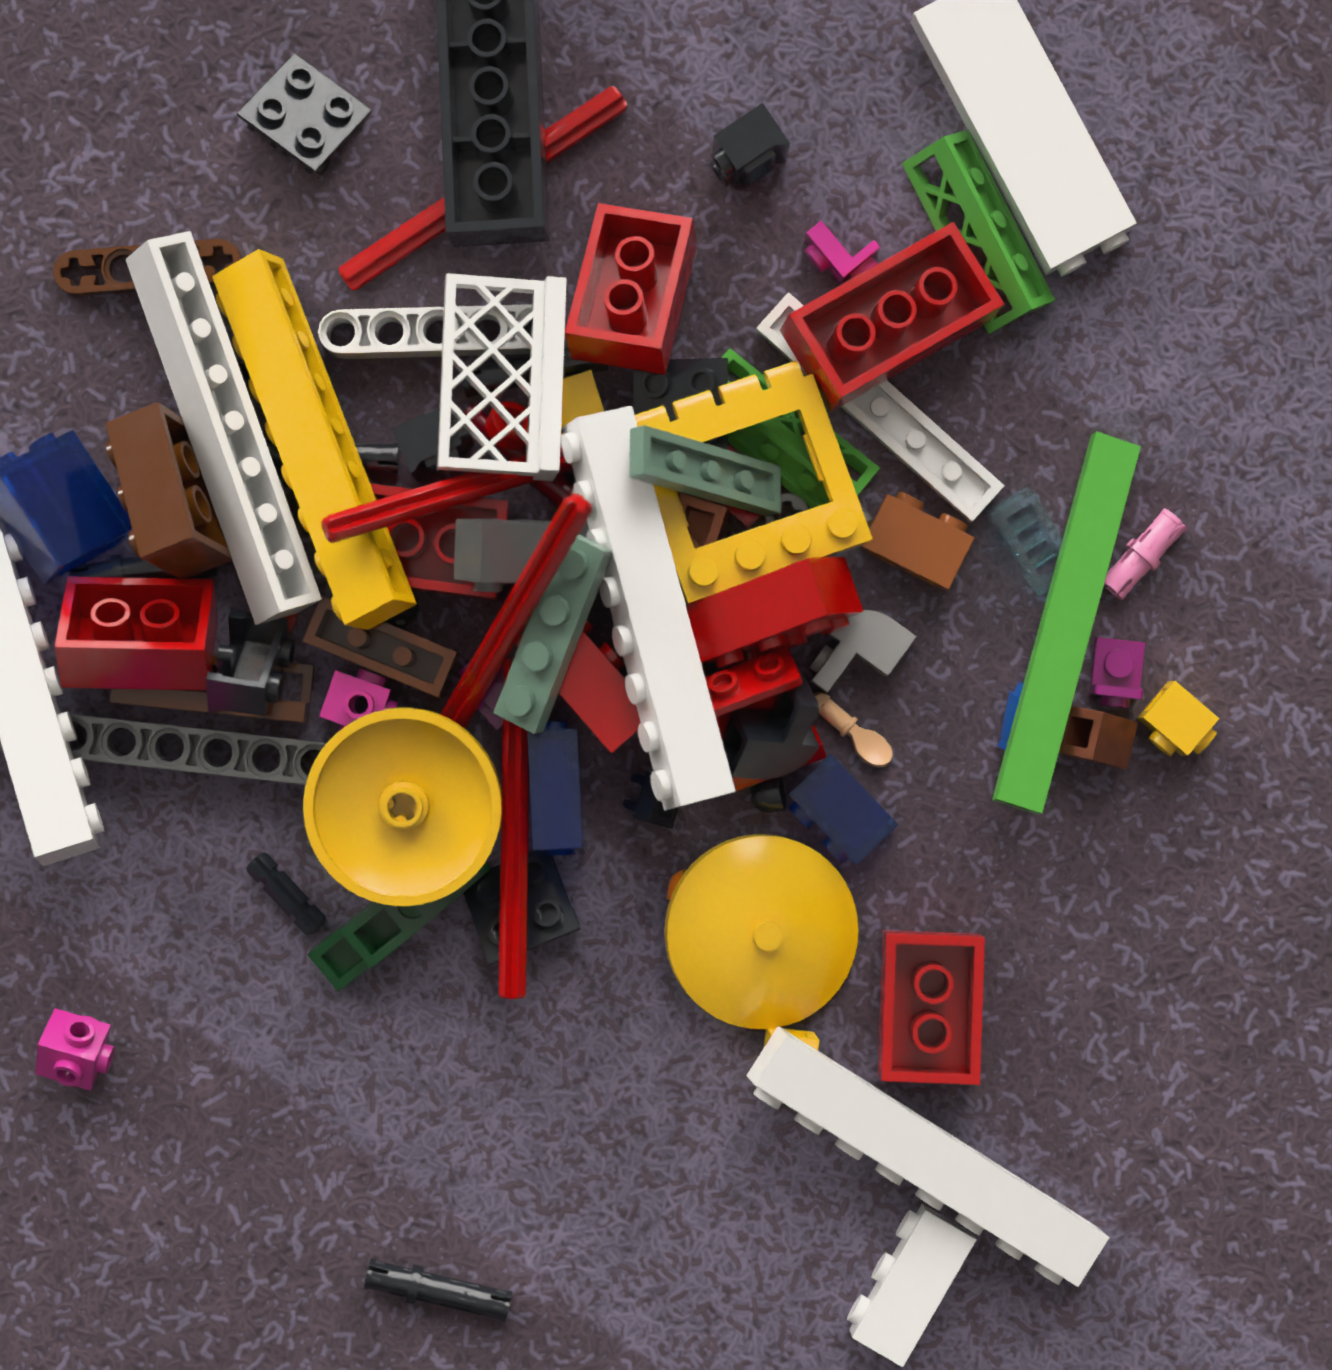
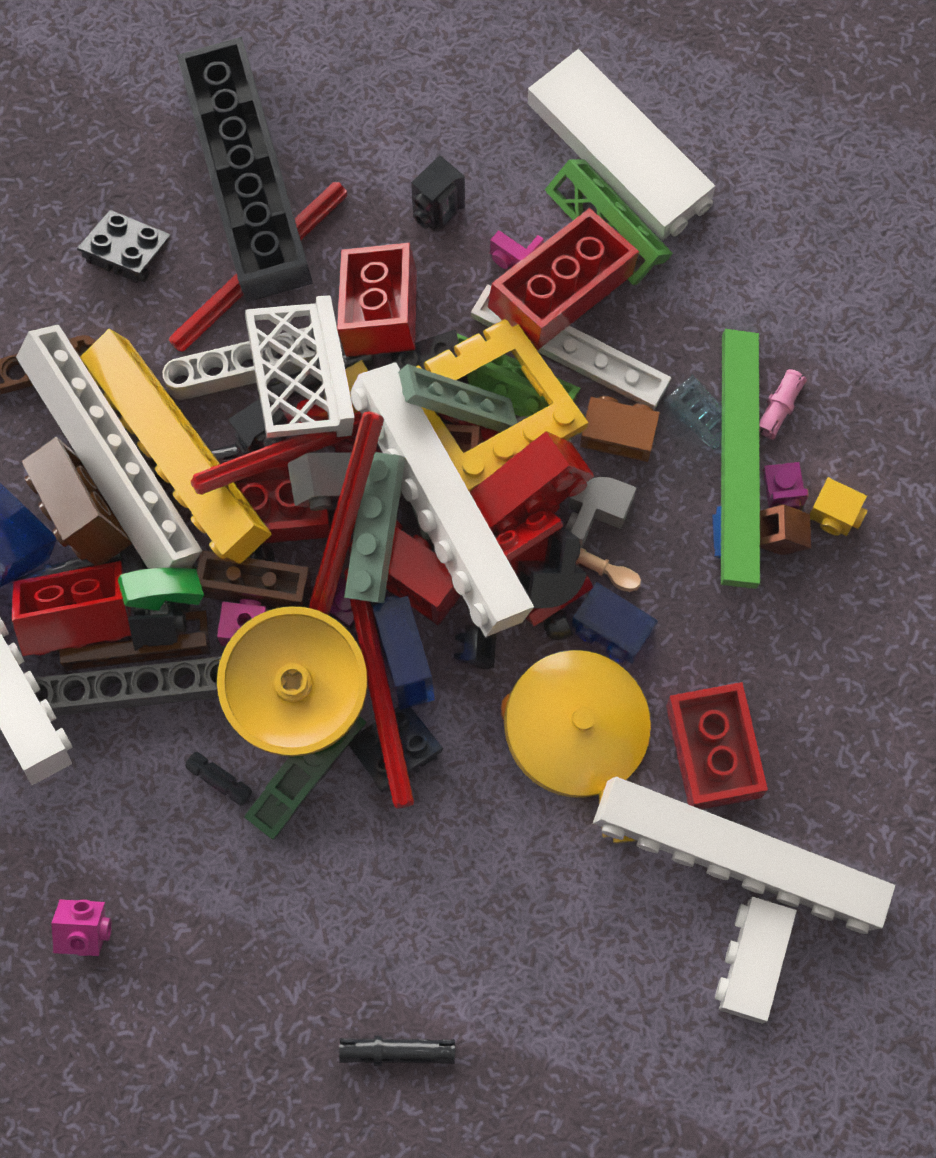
camera: 15 degrees left, 15 degrees down
(256, 640) = (153, 586): none -> green slope

